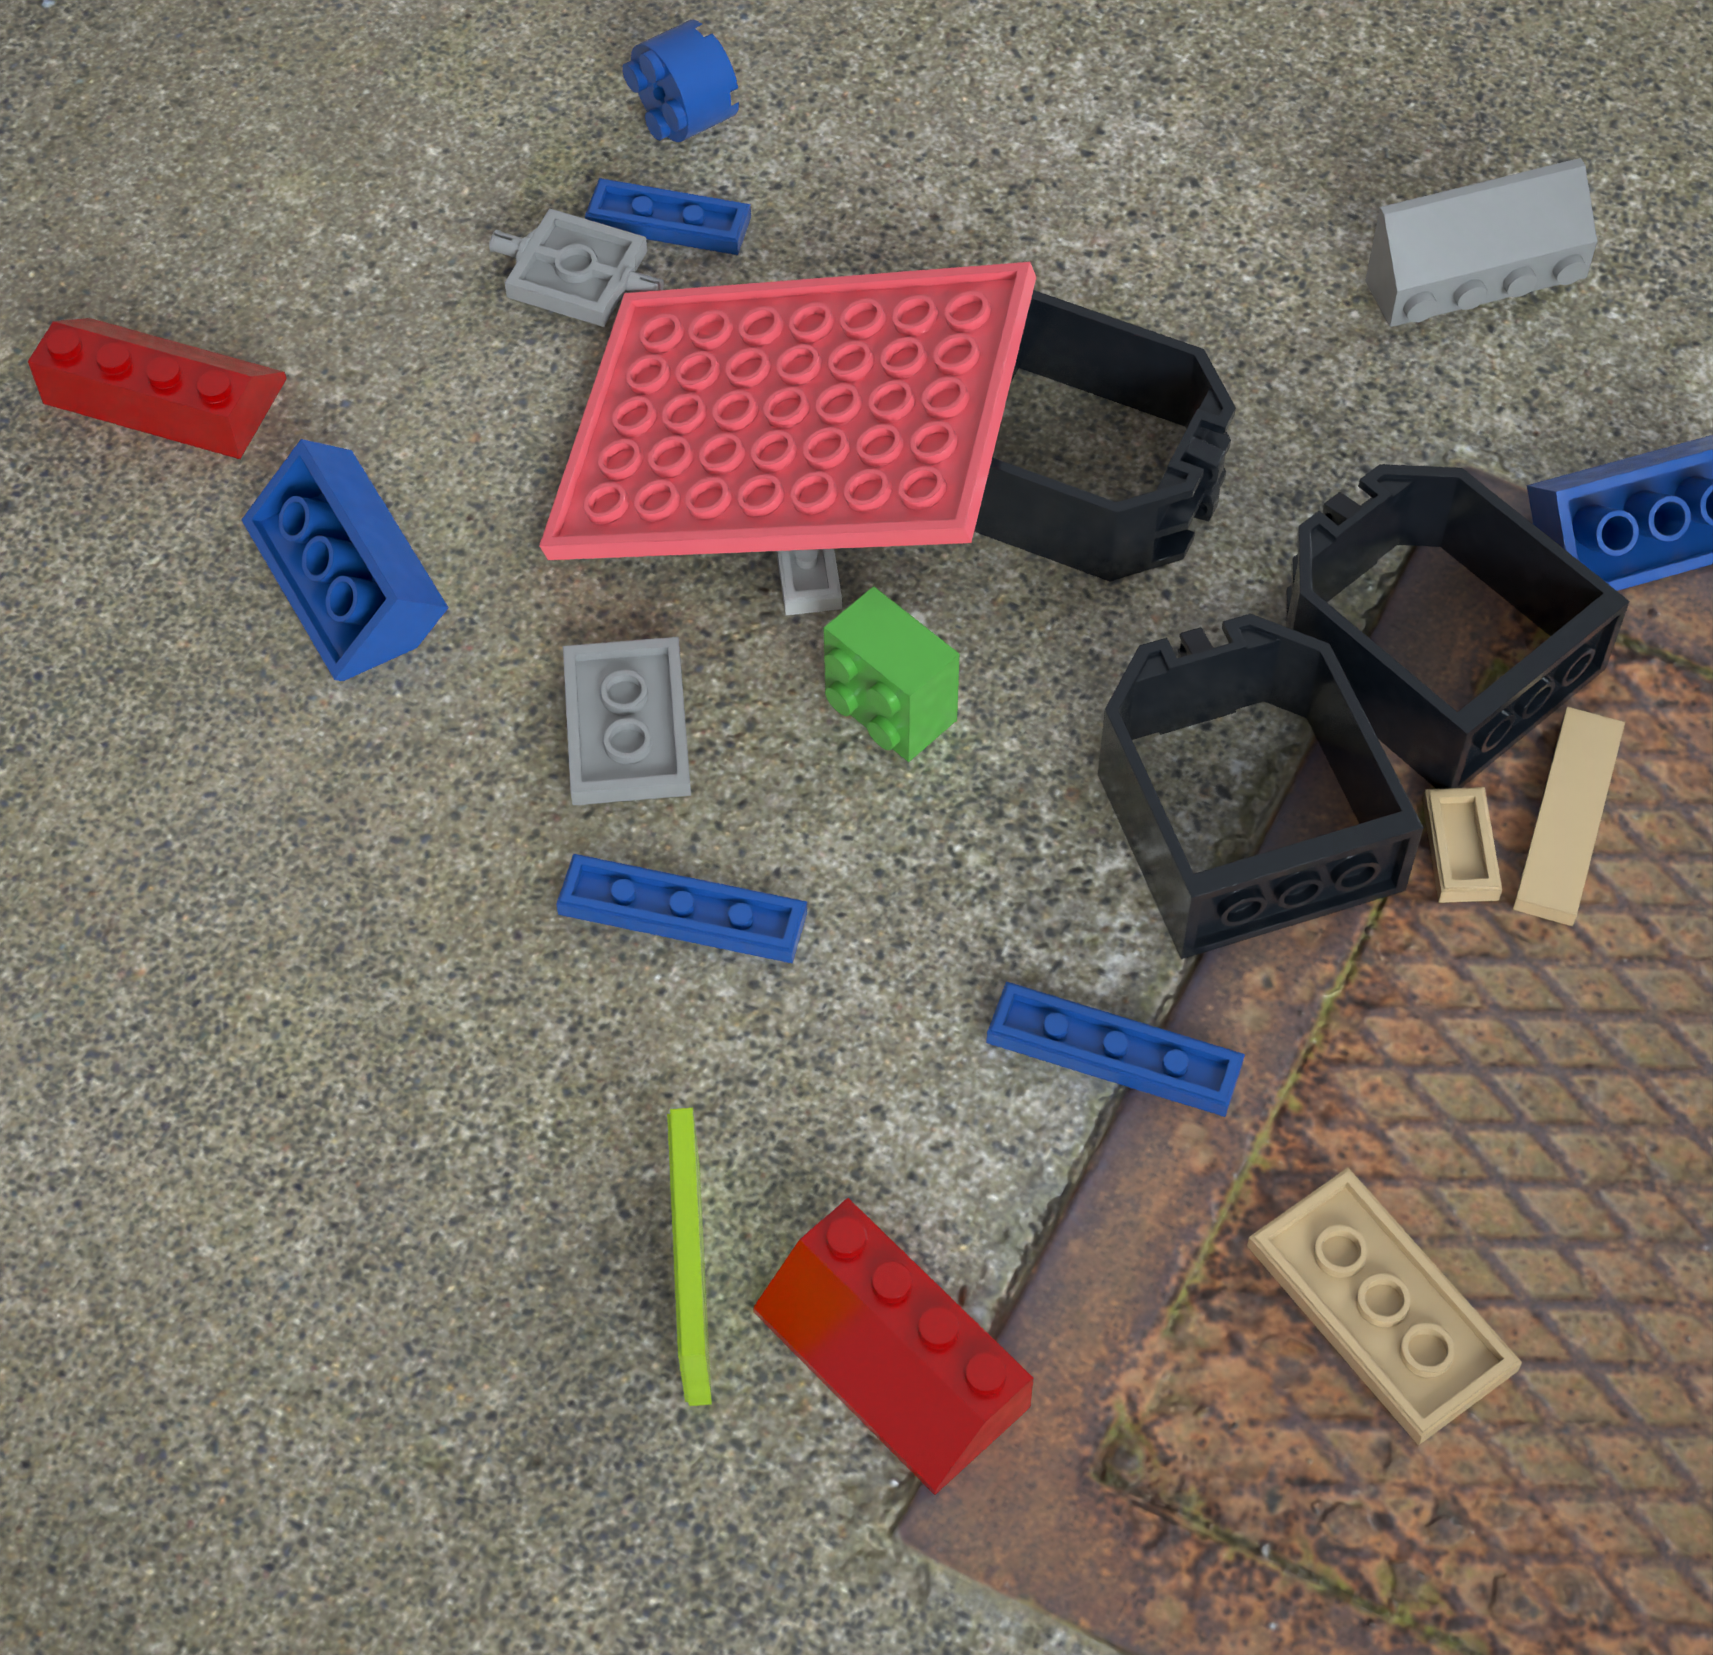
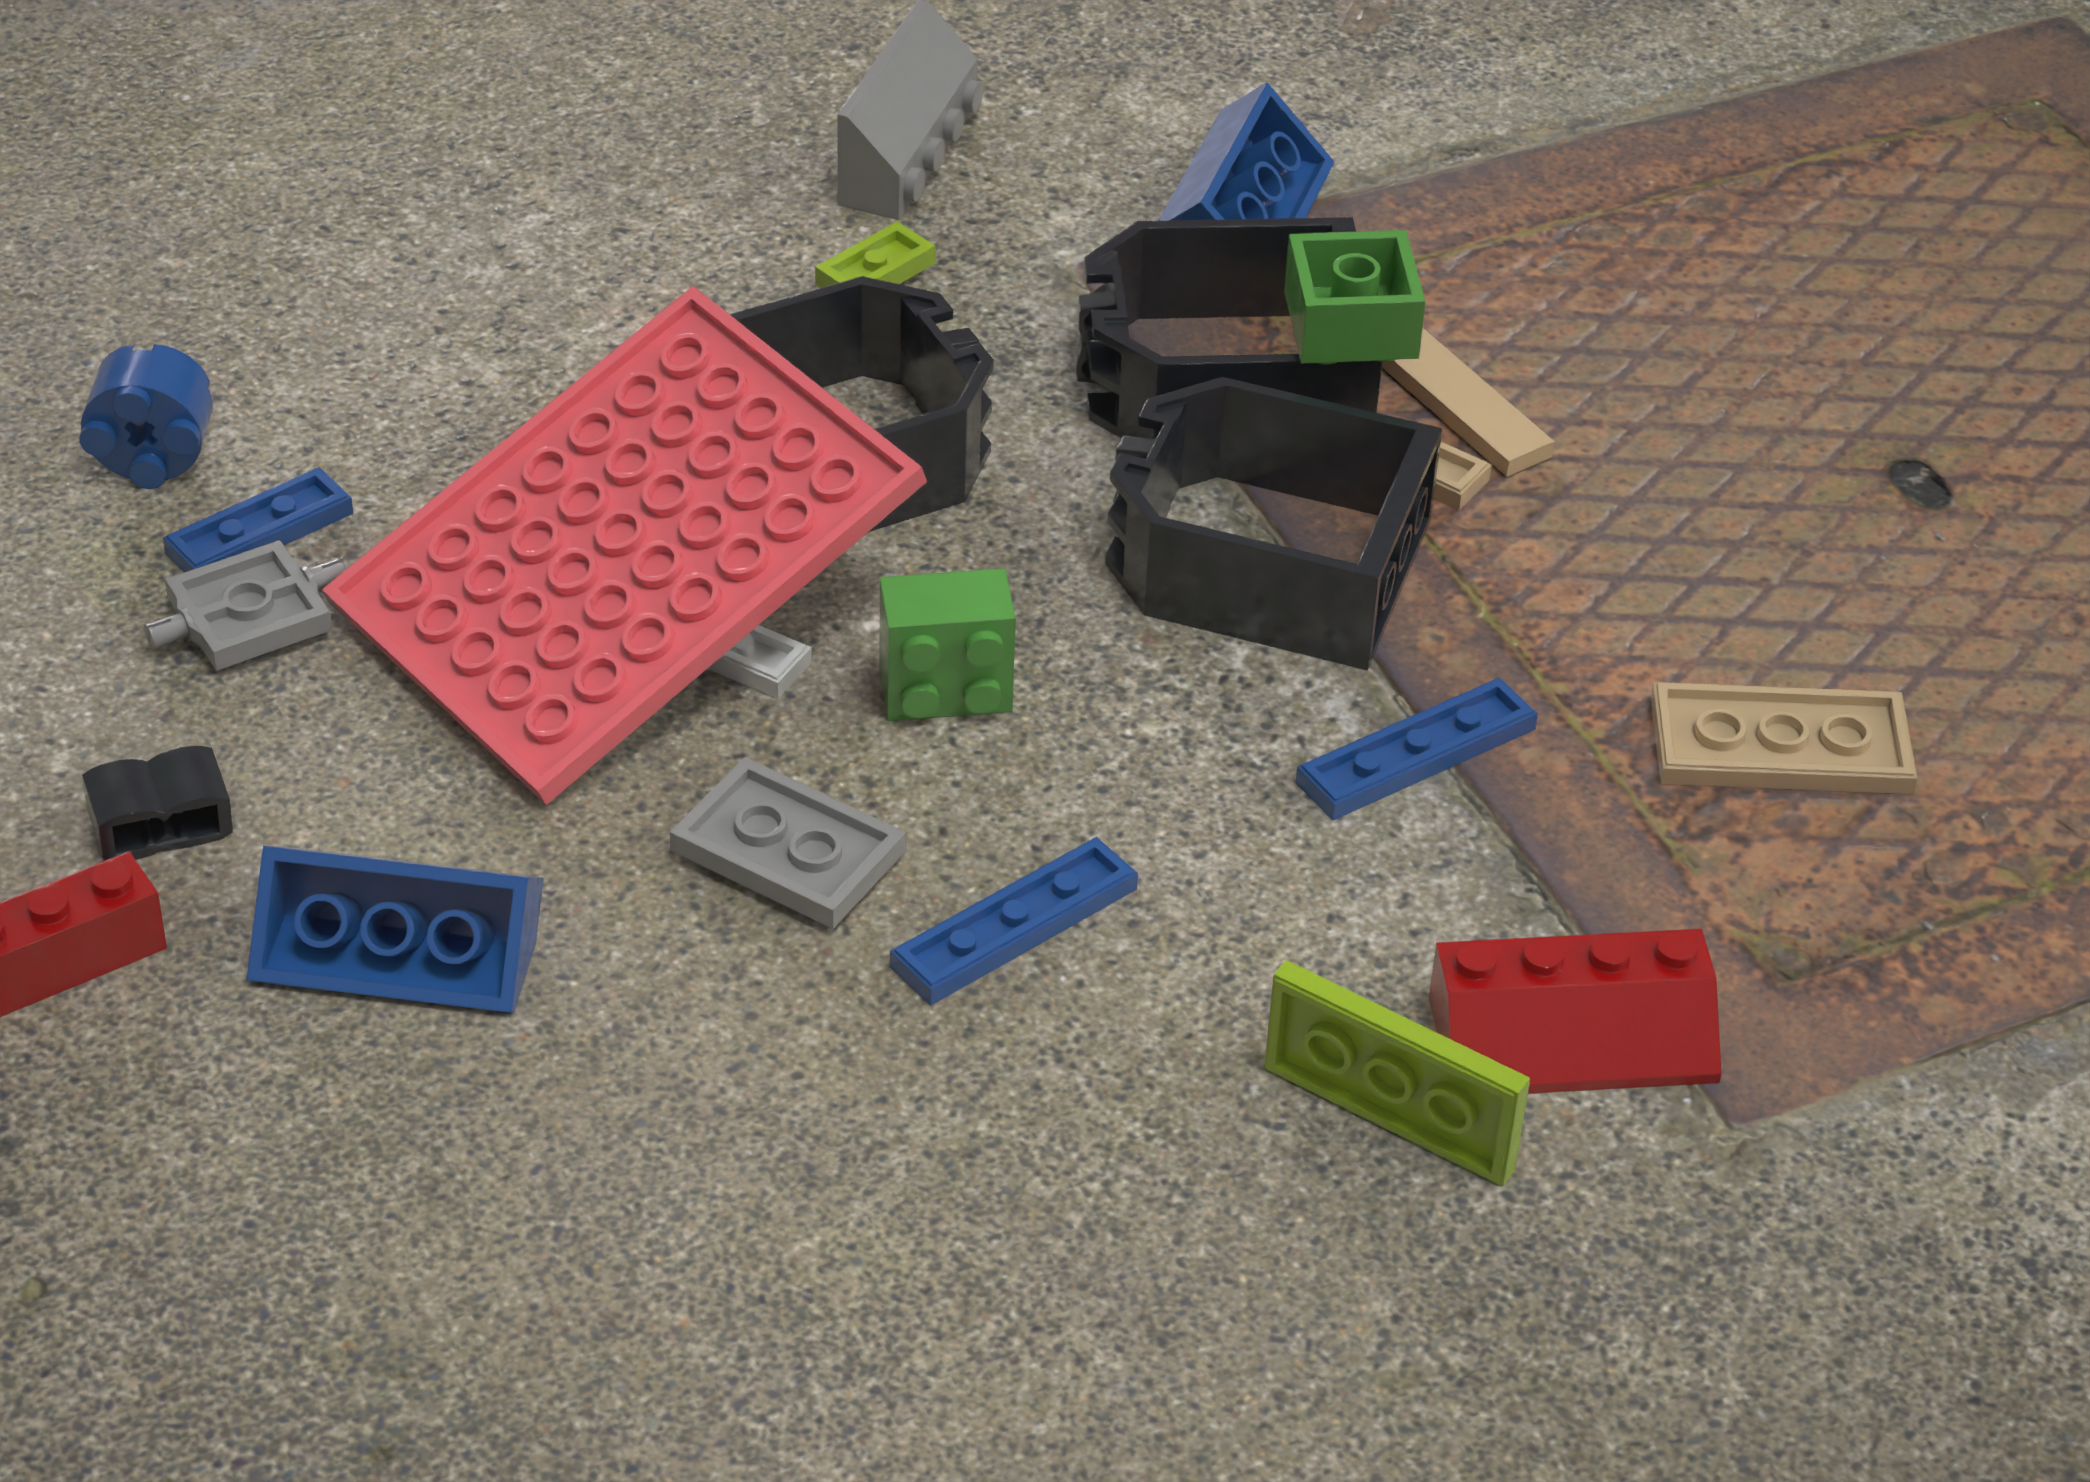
camera: 55 degrees left, 15 degrees down
(343, 358) = (158, 802): none -> black brick
(1303, 349) = (887, 256): none -> lime plate
(1483, 664) = (1354, 296): none -> bright green brick

